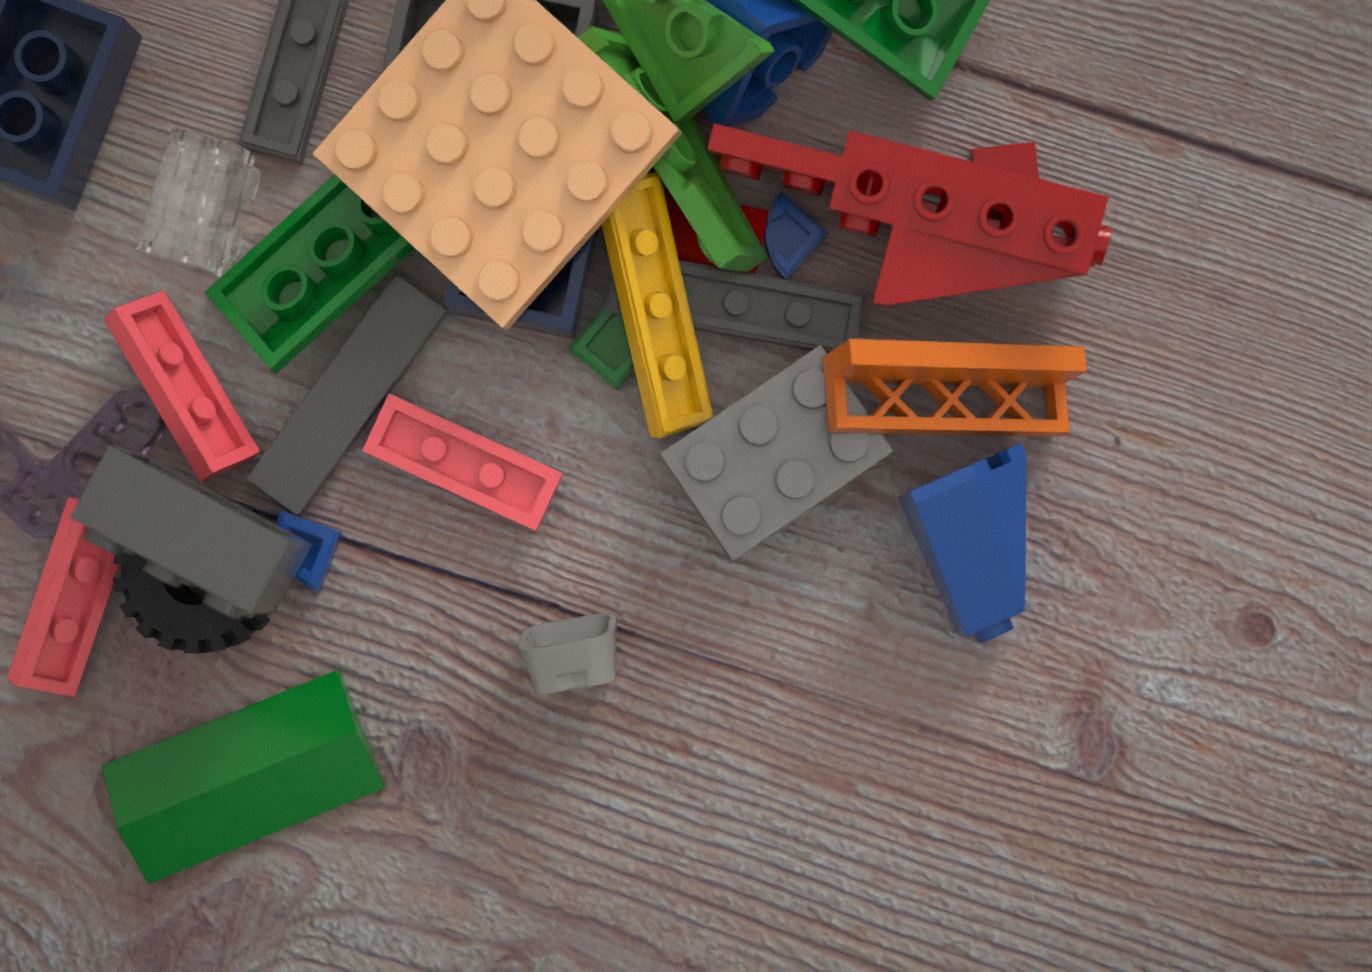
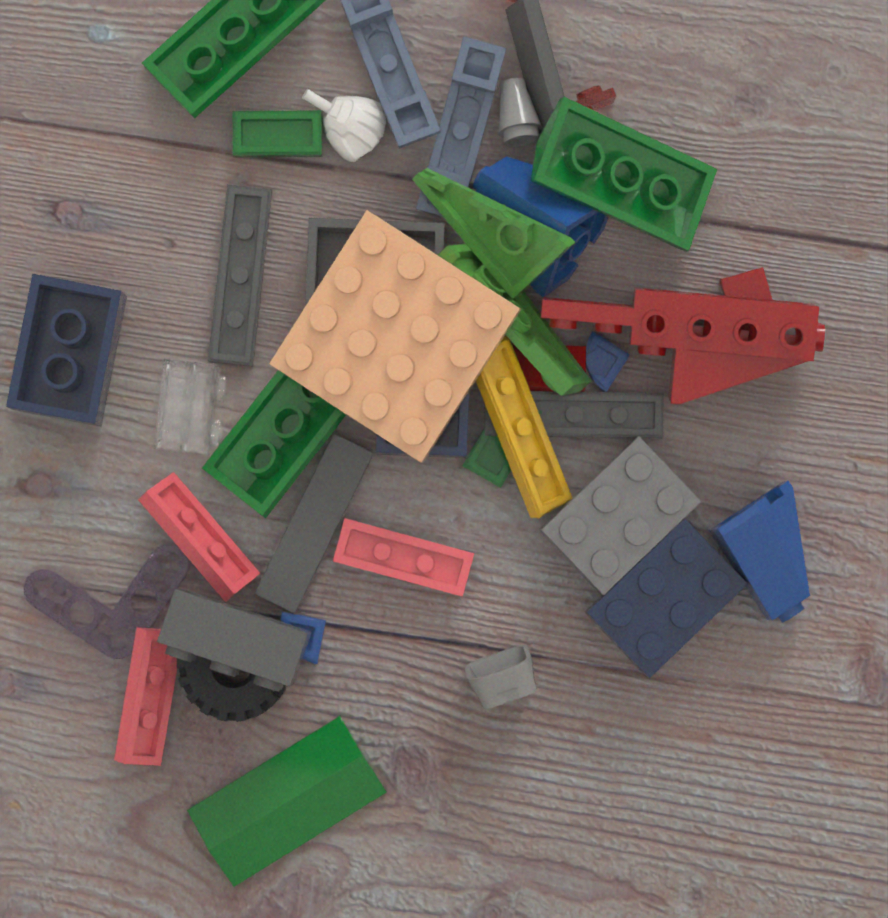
camera: 15 degrees left, 0 degrees up
(821, 580) = (666, 598): none -> dark blue brick
(955, 364) = (732, 434): orange fence -> none

